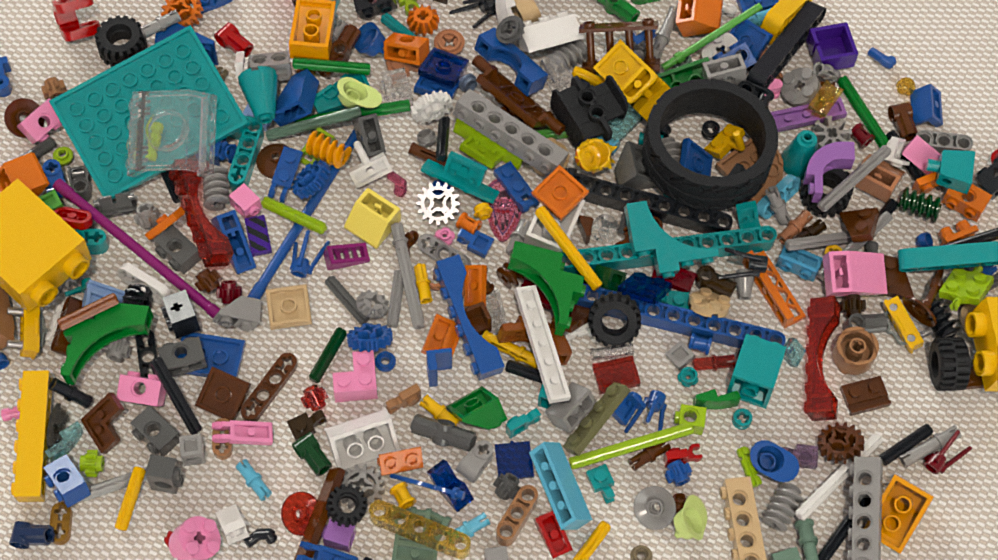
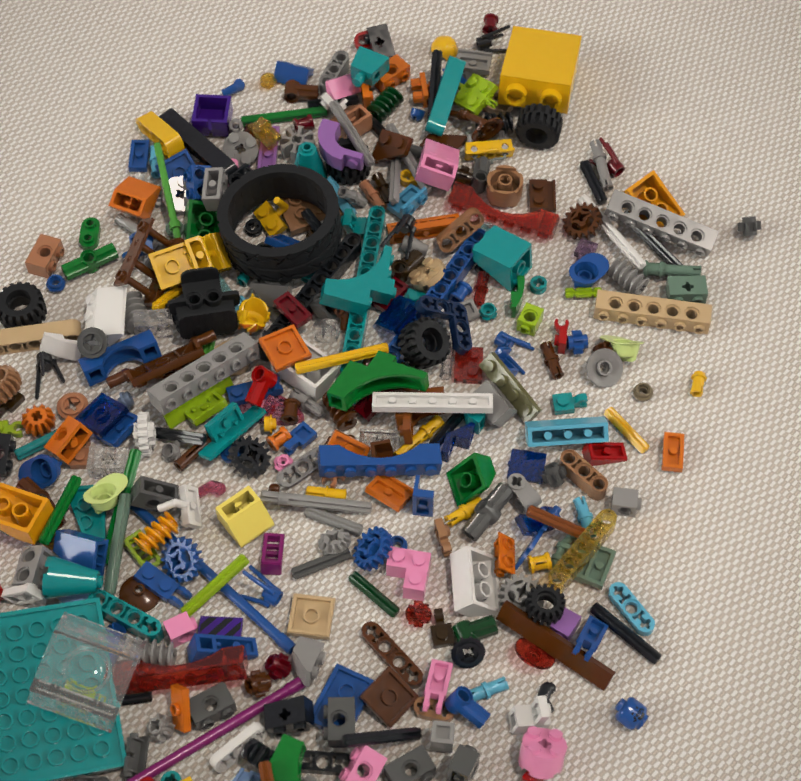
camera: 70 degrees left, 5 degrees down
(227, 467) = (462, 702): none -> blue piece
(284, 459) = (468, 660): none -> black gear
(444, 492) = (554, 521): none -> dark orange axle
(501, 224) = (290, 411): none -> reddish brown bush
(519, 186) = (262, 381): none -> red piece
(519, 424) = (495, 451): teal plate -> none
(525, 389) = (460, 438): none -> clear blue slope
(585, 226) = (321, 344): reddish brown slope -> none
(610, 277) = (378, 336): dark green brick -> none
(611, 188) = (292, 309): none -> dark red plate
(631, 445) = (543, 367): lime axle -> none
(660, 335) = (454, 313): none -> dark blue beam
(775, 319) = (457, 238): none -> medium nougat beam

